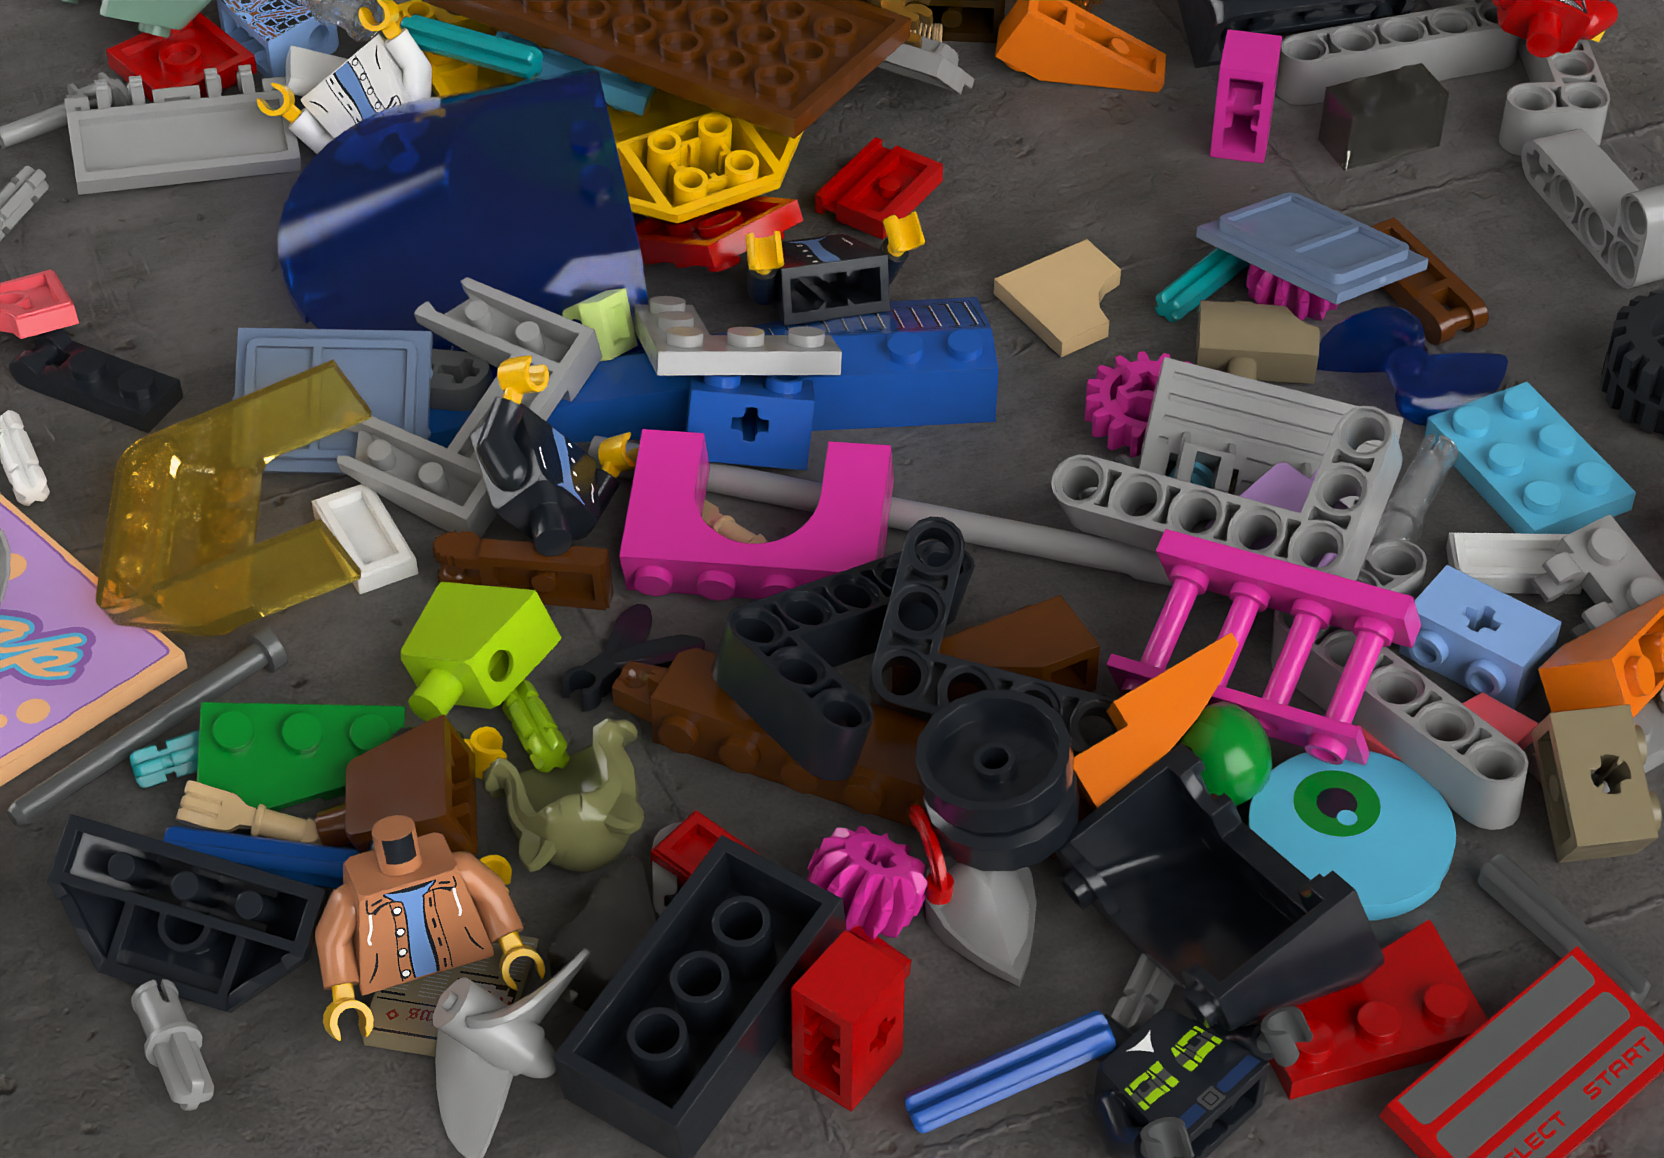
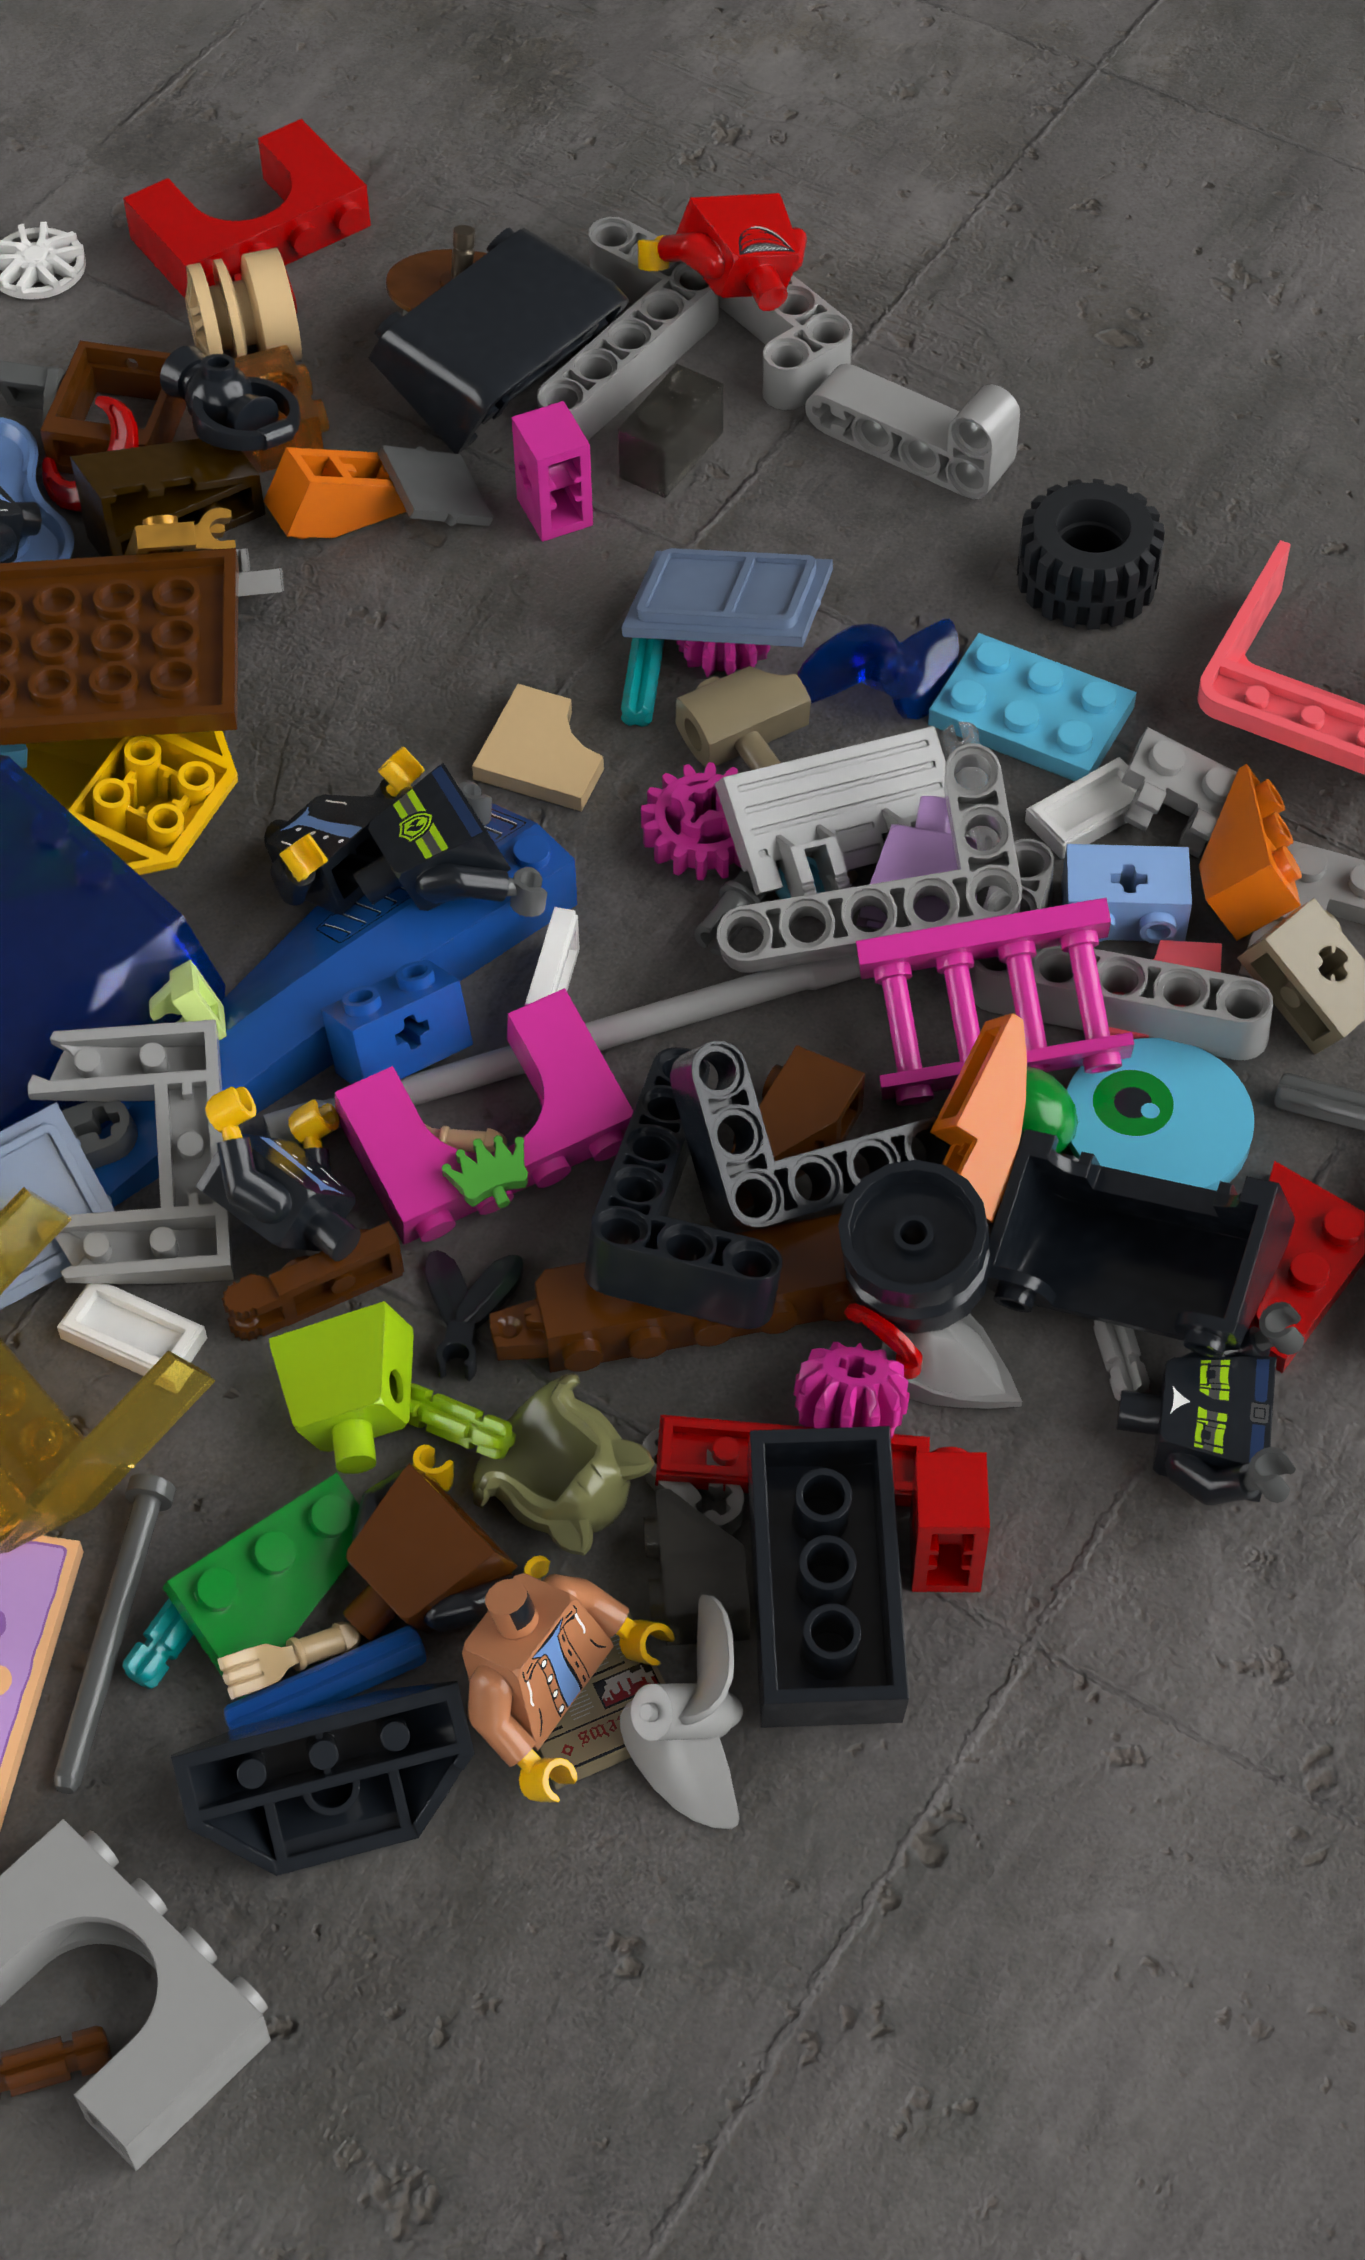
camera: 35 degrees left, 10 degrees up
(173, 1044) = (408, 1895): light grey axle -> none
(682, 345) = (320, 996): light grey plate -> none
(715, 554) = (490, 1174): none -> bright green piece
(718, 236) = (227, 854): red plate -> none
(877, 186) = (294, 727): red plate -> none
(890, 300) = (442, 851): none -> black torso
(928, 444) = (557, 955): none -> white tile
(1009, 1071) = (1089, 1485): axle -> none
(1148, 74) = (435, 486): none -> dark grey piece
(1430, 289) = (847, 576): reddish brown plate -> none

